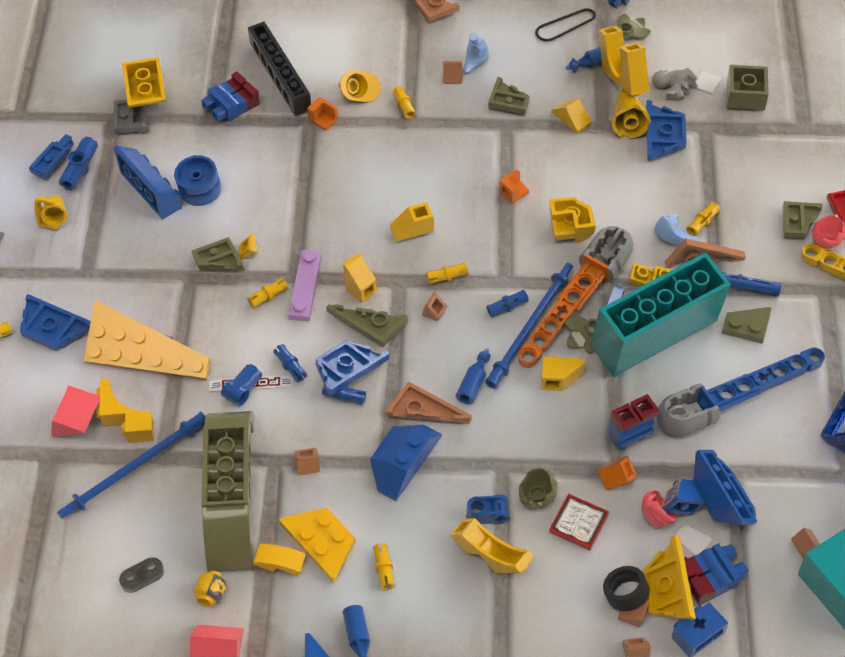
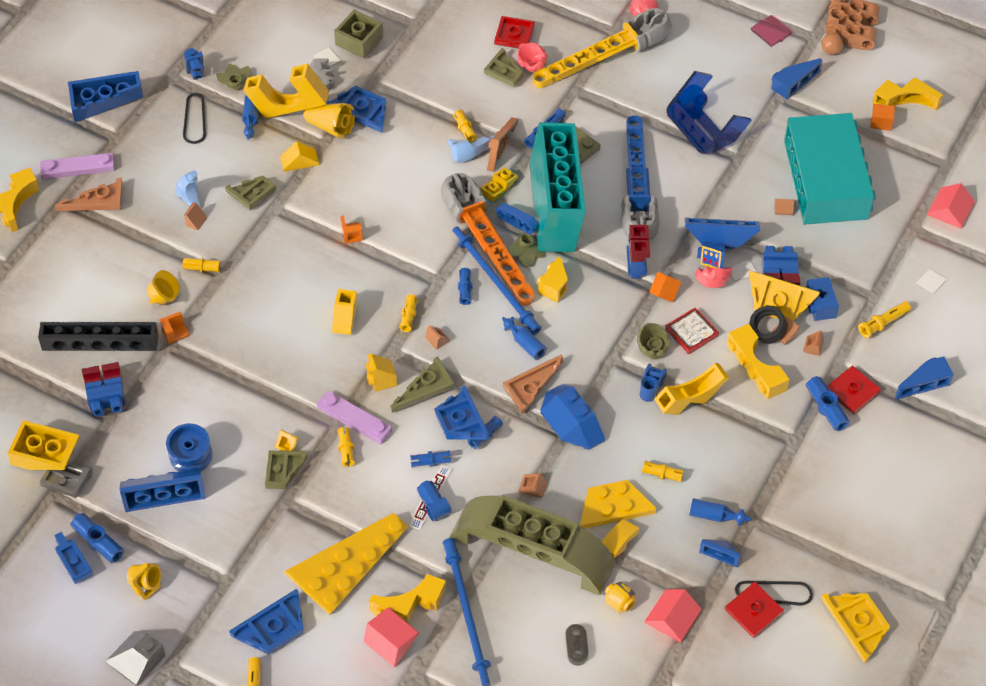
camera: 65 degrees left, 0 degrees up
(557, 621) = (769, 379): none -> yellow arch
(571, 219) = (414, 205): yellow brick -> none

